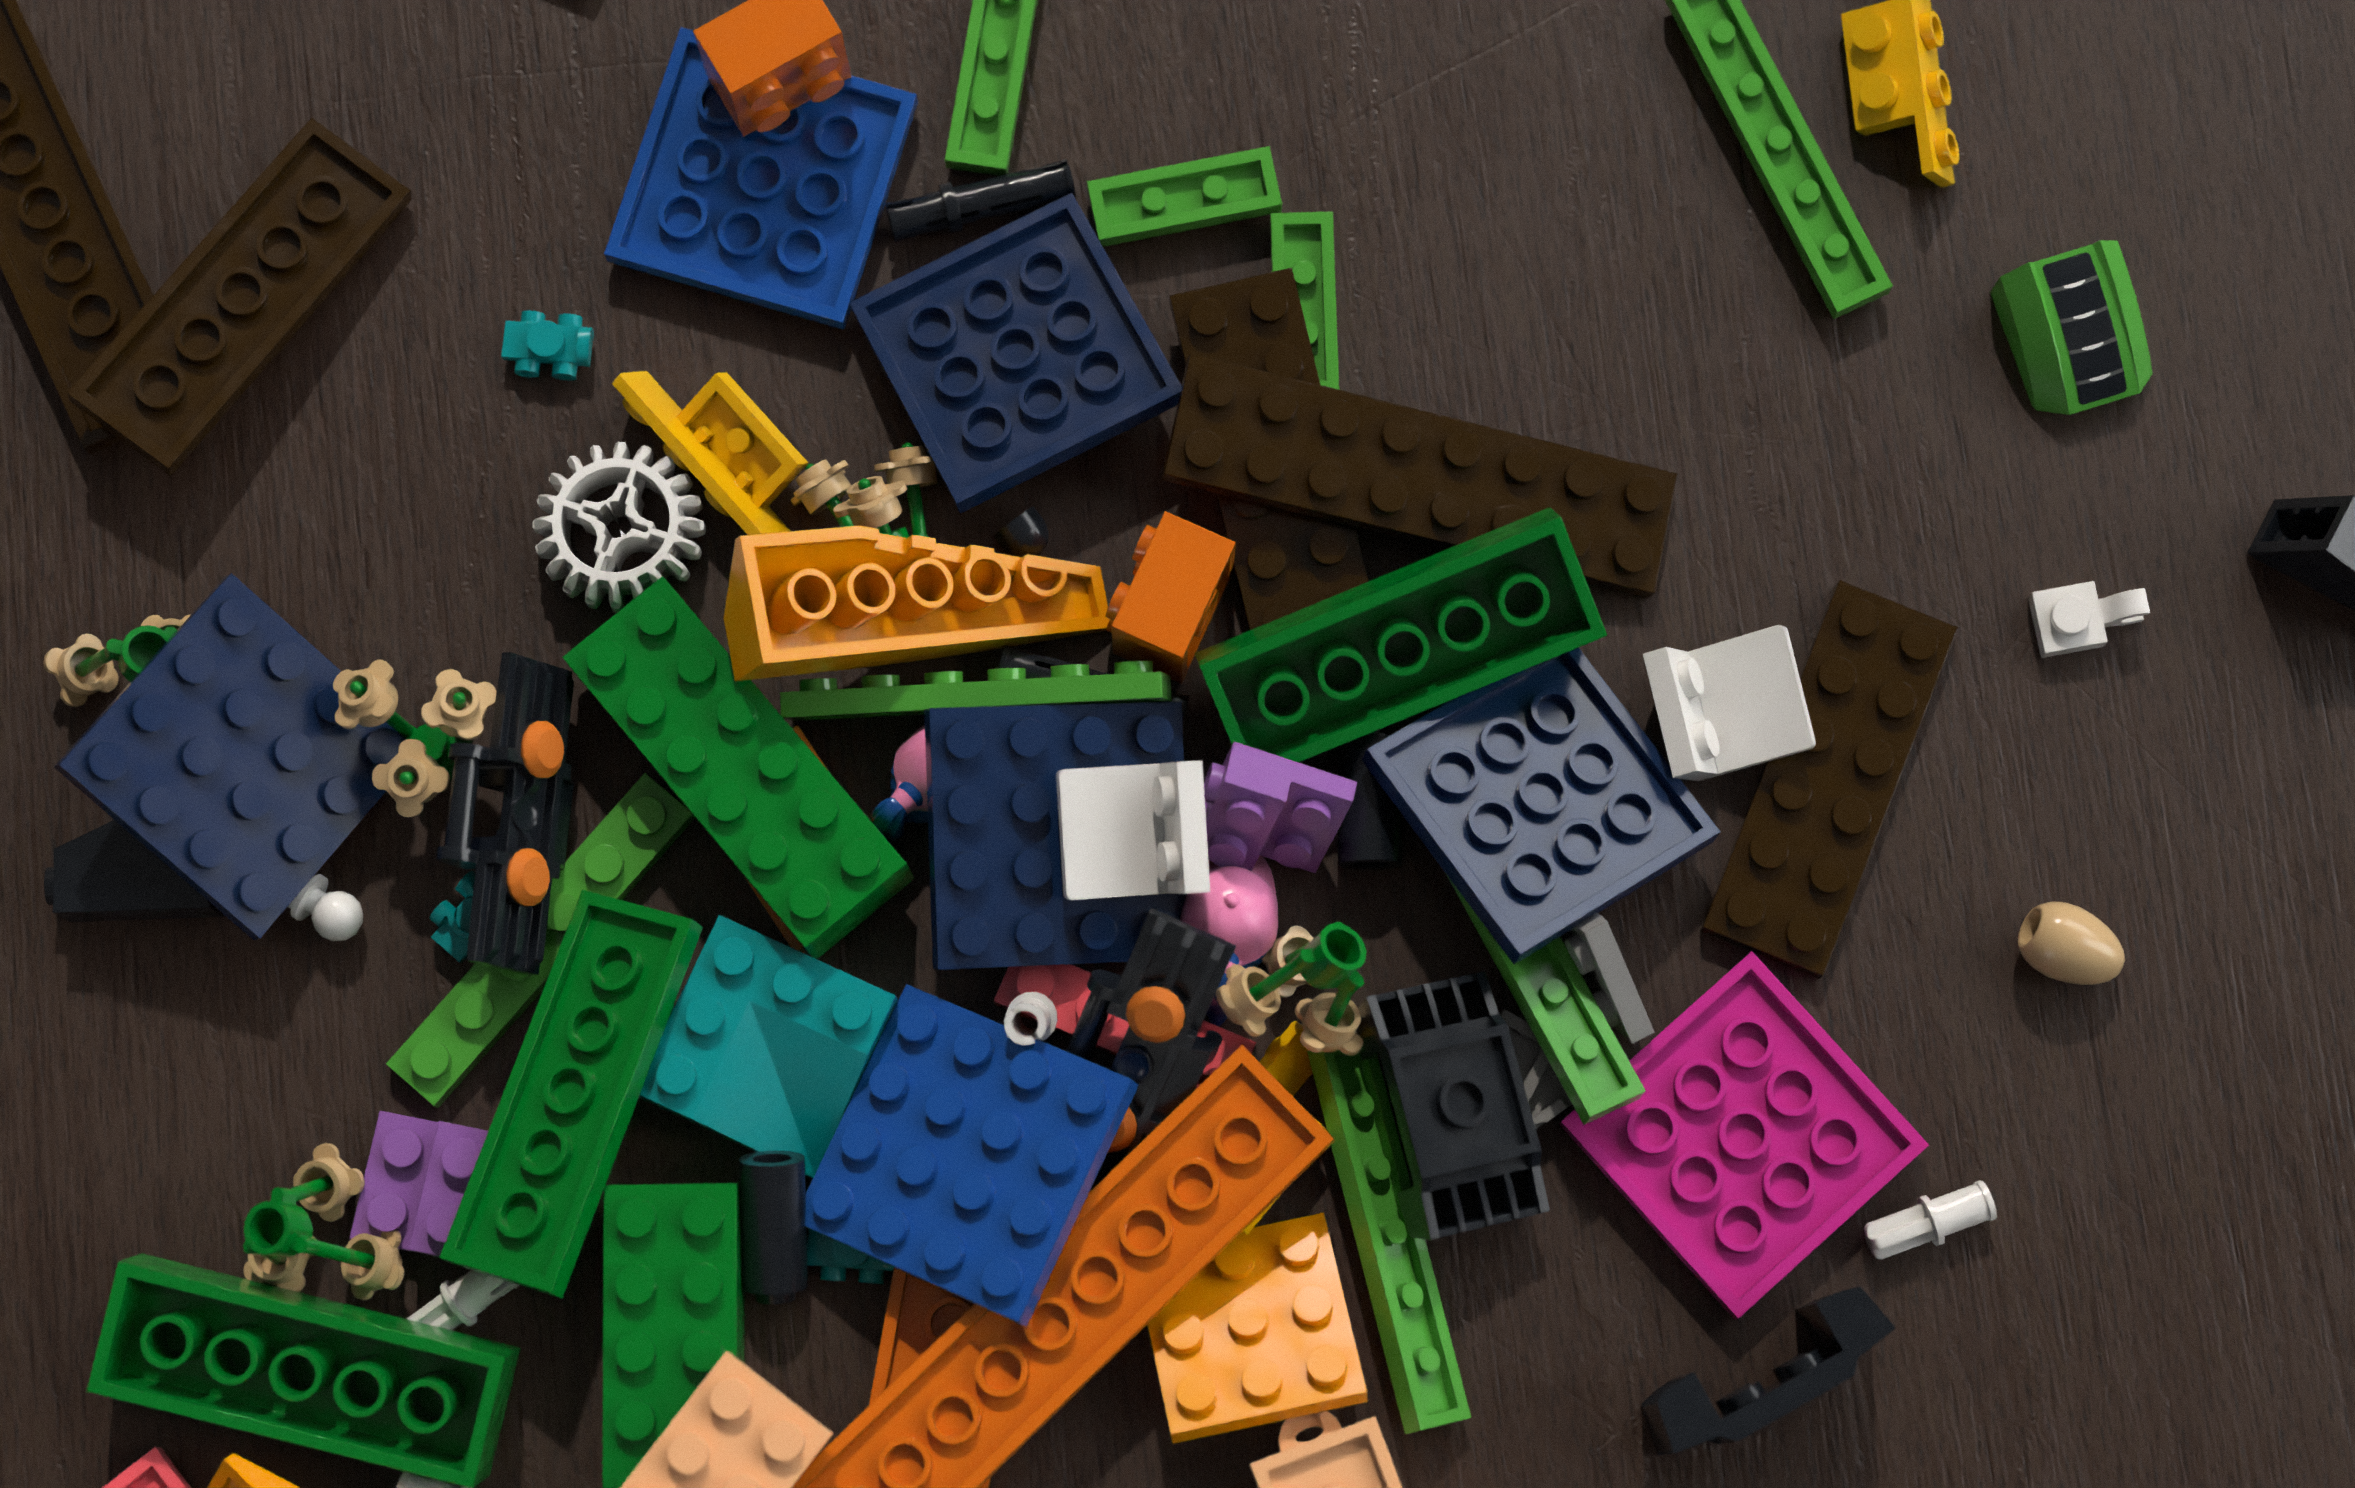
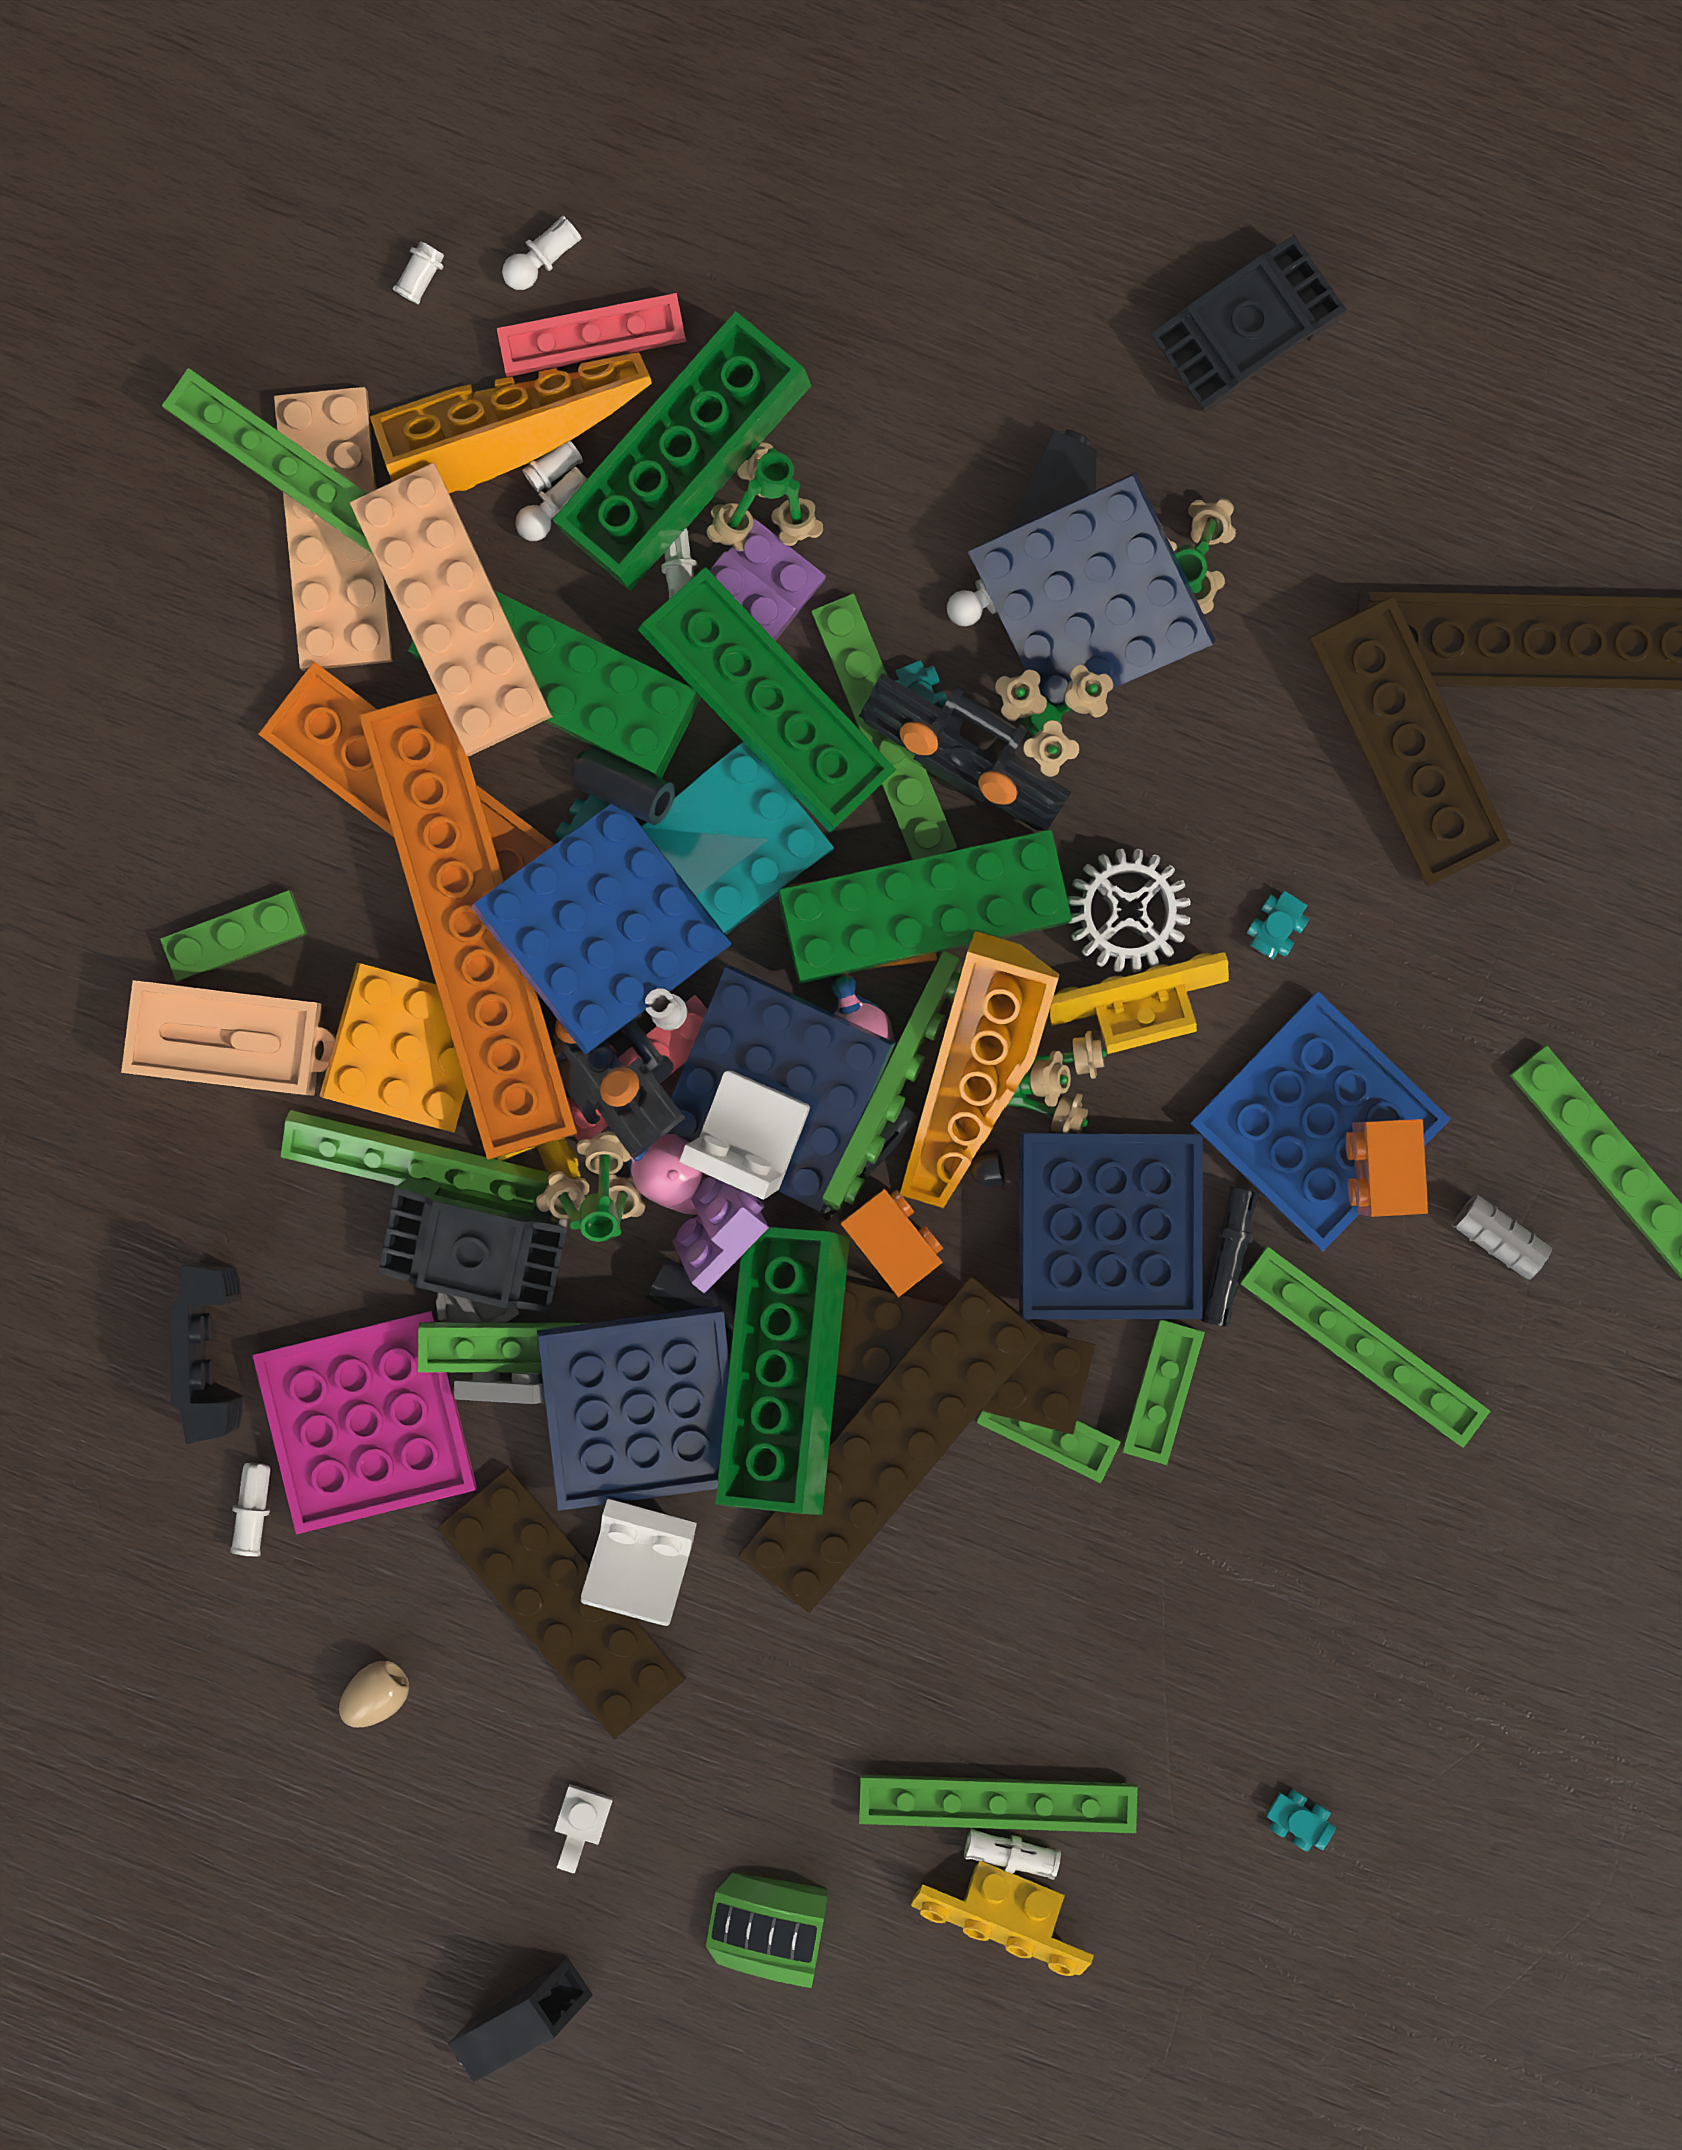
camera: 120 degrees right, 10 degrees up
(1827, 96) = (1012, 1854): none -> white pin

